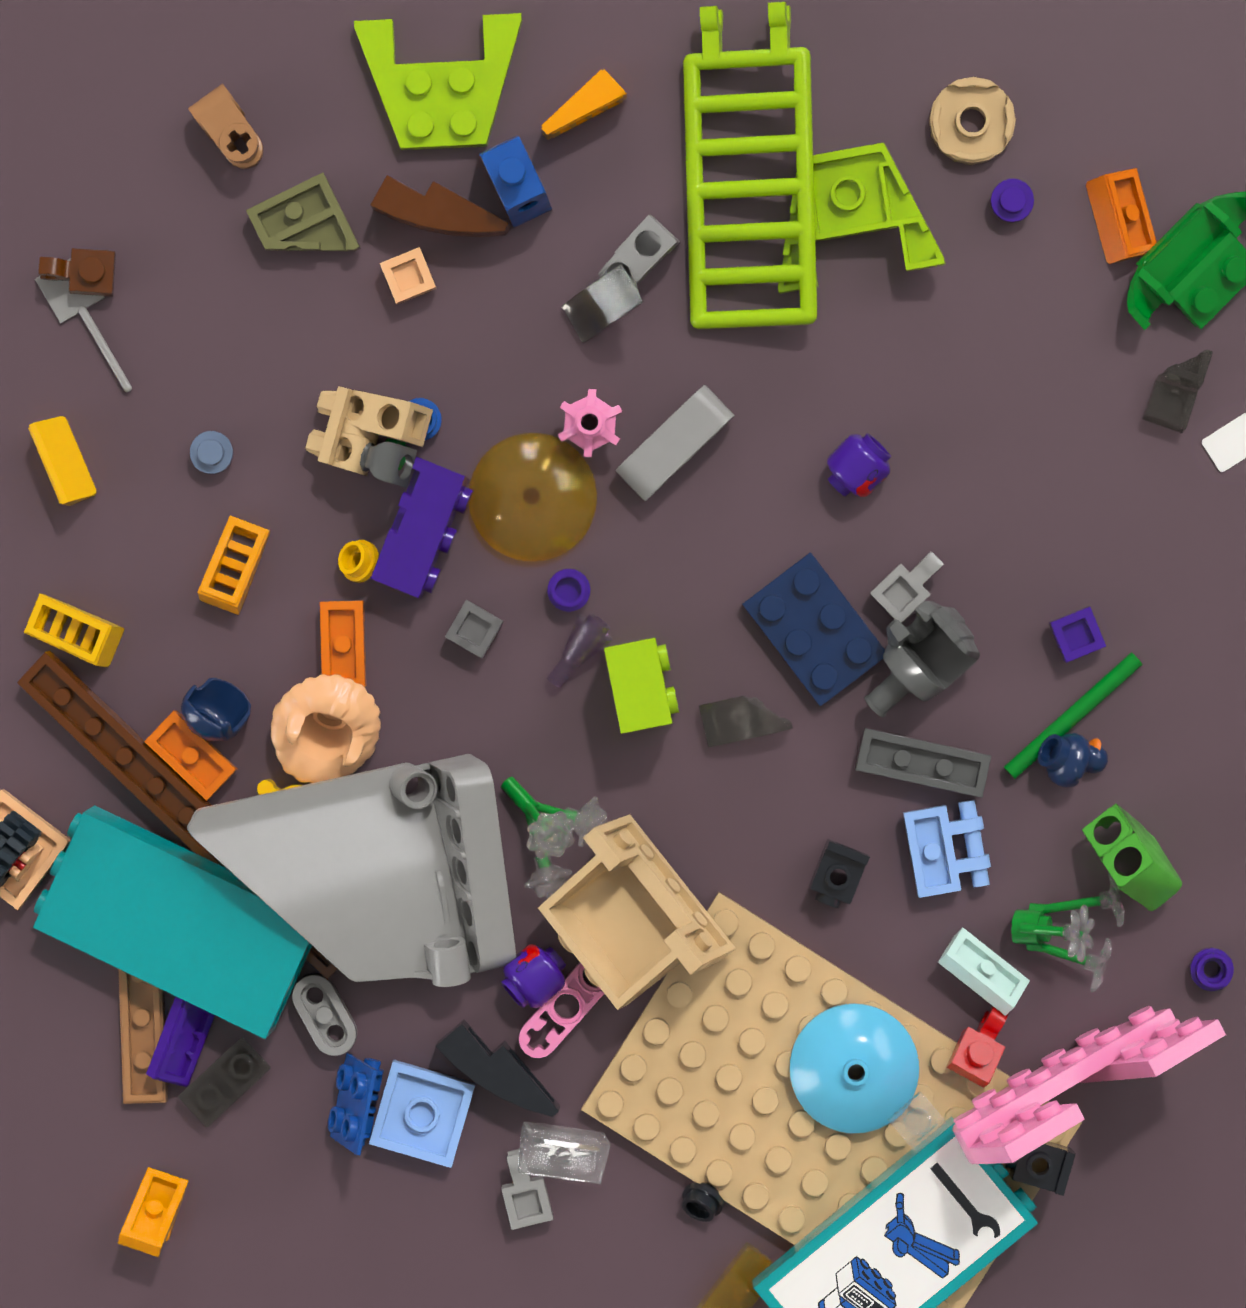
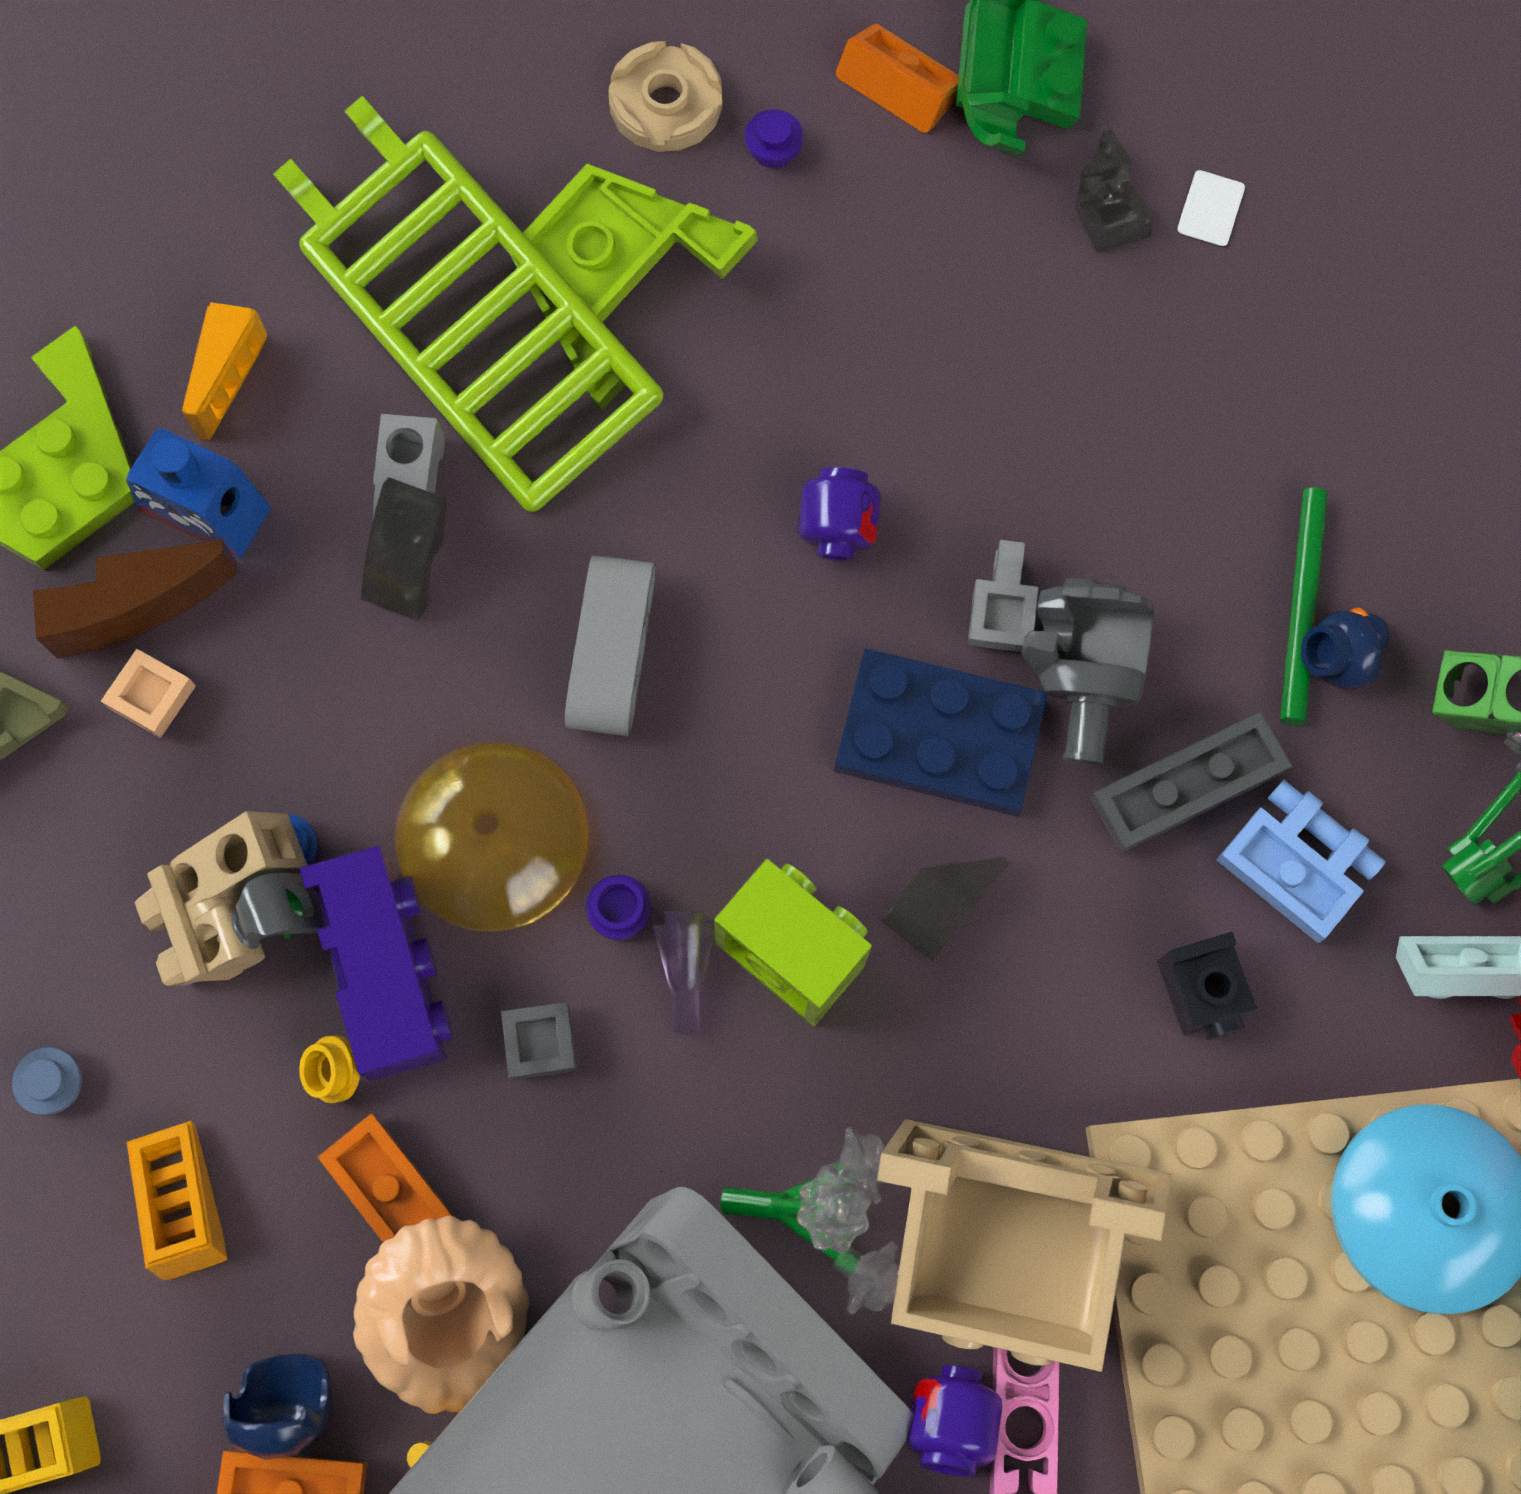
camera: 45 degrees left, 15 degrees down
(601, 434) = (485, 673): bright pink rock -> none
(1077, 634) = (1232, 512): dark purple plate -> none

